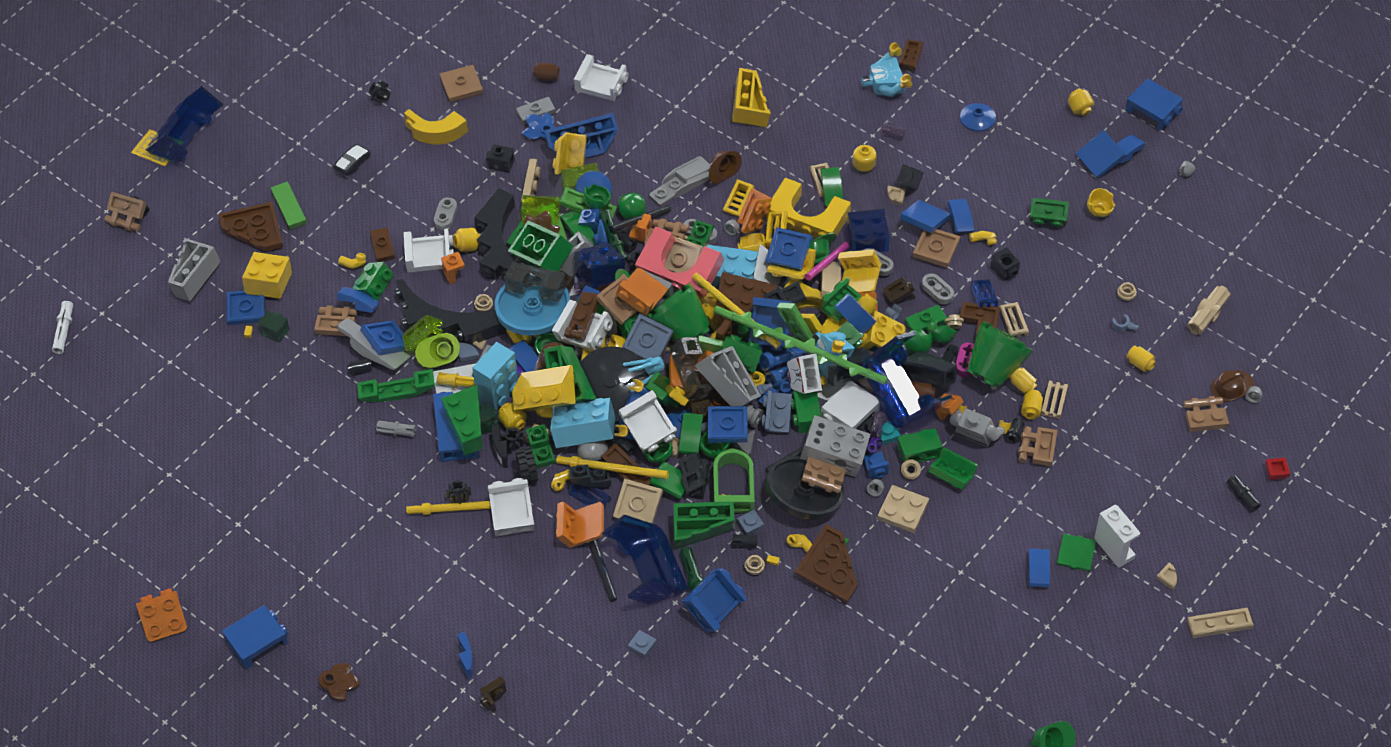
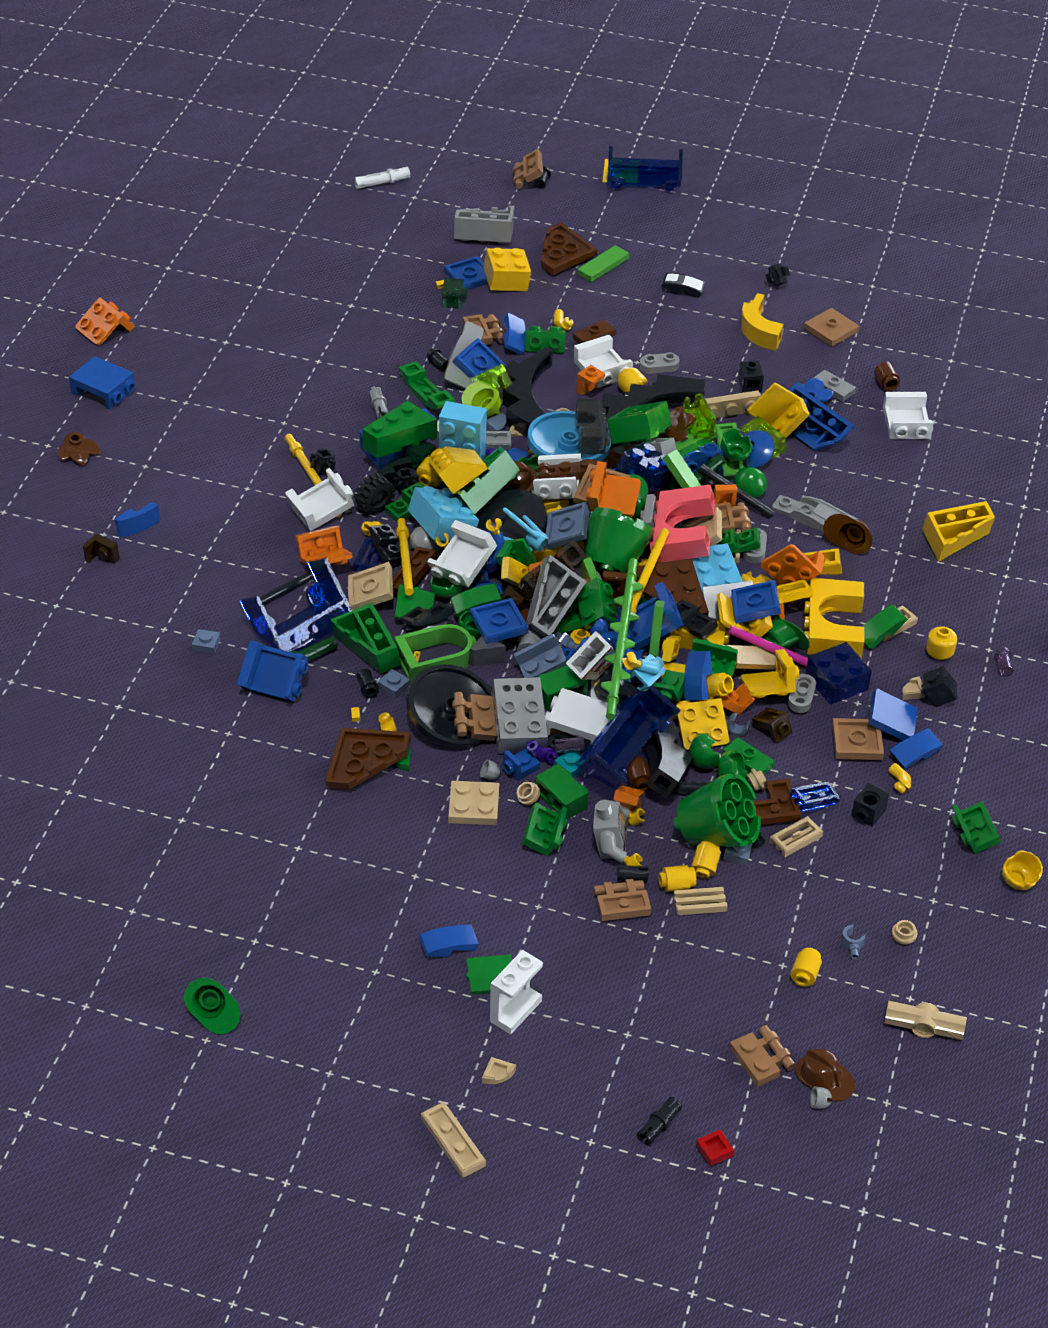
camera: 65 degrees right, 10 degrees down
(622, 242) = (680, 470): none -> tile
(754, 560) = (340, 698): tan plate -> none
(939, 288) = (796, 755): light grey plate -> none

